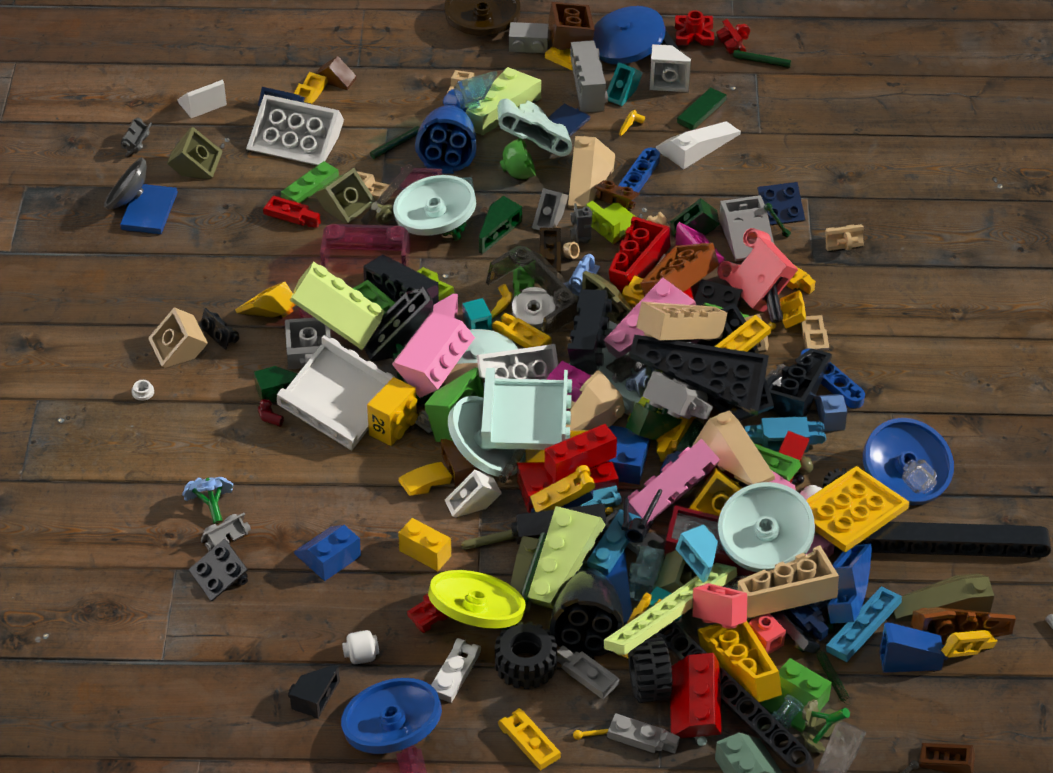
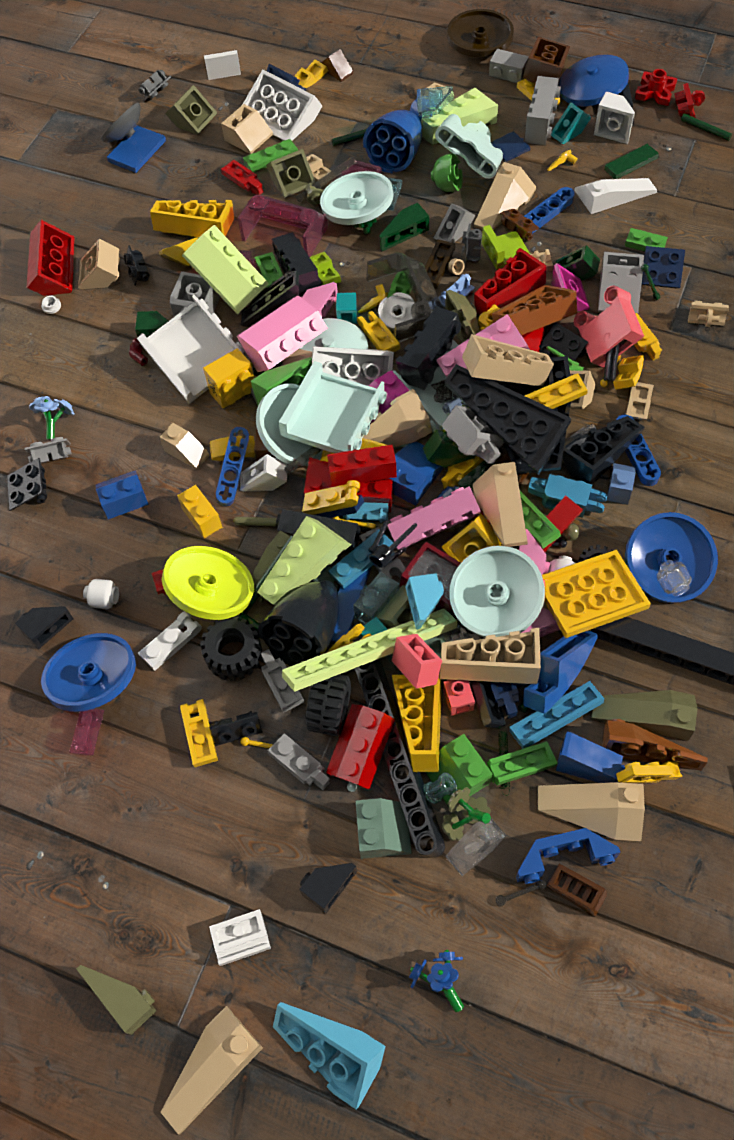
camera: 25 degrees right, 15 degrees up
(116, 345) = (50, 260): none -> red slope
(260, 265) = (191, 217): none -> yellow wedge
(271, 161) = (246, 129): none -> tan slope
(373, 489) = (183, 446): none -> tan slope
(437, 493) = (233, 466): none -> blue beam
(568, 721) = (228, 730): none -> black hinge
(749, 182) = (640, 239): none -> bright green plate
(852, 671) = (521, 763): none -> bright green hinge
(942, 684) = (600, 807): none -> tan wedge
(949, 717) = (598, 849): none -> blue slope

